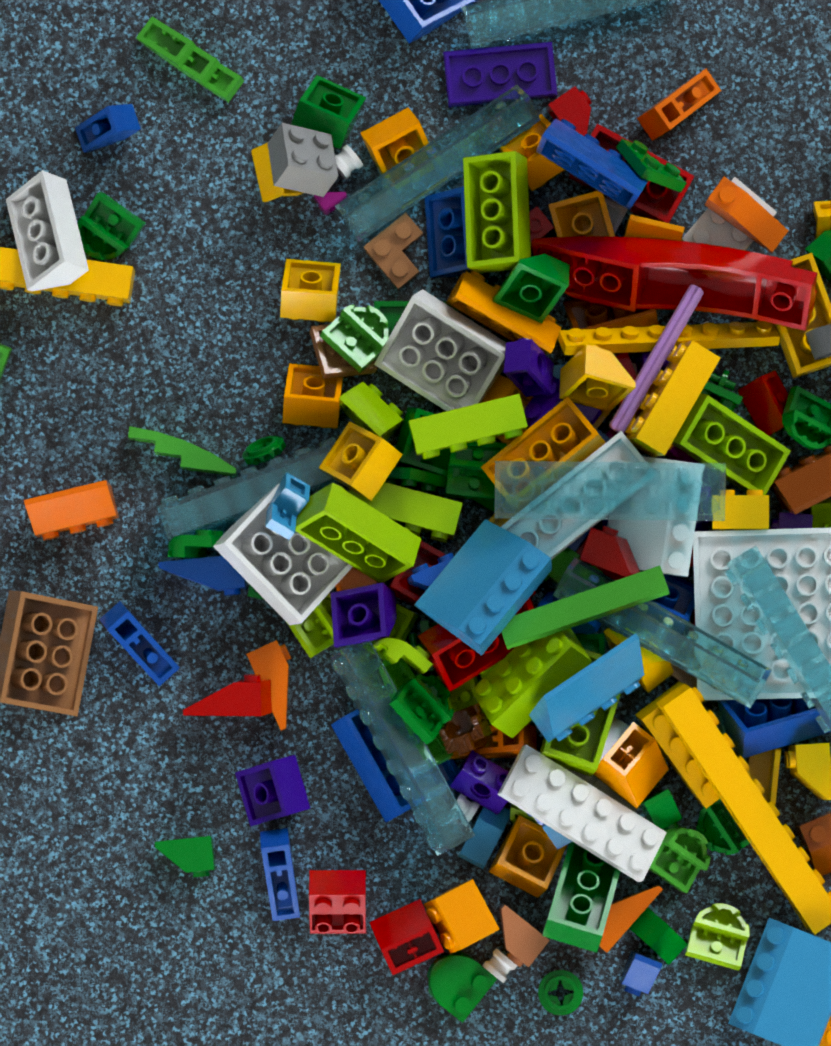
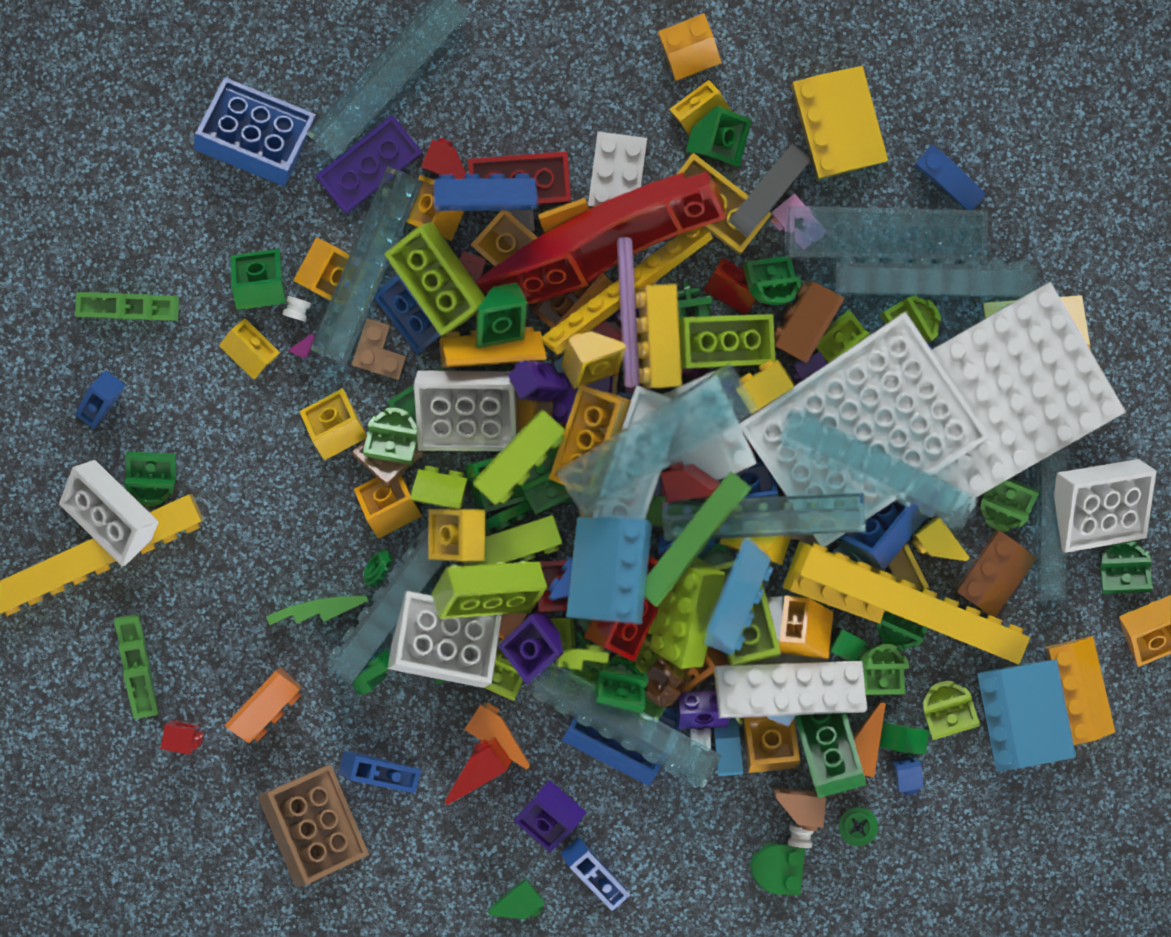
camera: 25 degrees left, 5 degrees up
(208, 571) = (394, 687): blue slope -> none
(286, 505) = (422, 604): dark azure slope -> none
(302, 159) = (263, 332): light grey brick -> none
(337, 901) = (650, 866): red slope -> none
(406, 937) = (718, 860): red slope -> none
(461, 916) = (749, 820): light orange slope -> none
(649, 167) = (527, 171): green plate -> none
(679, 104) = (520, 101): orange slope -> none
(746, 214) = (626, 157): orange slope -> none

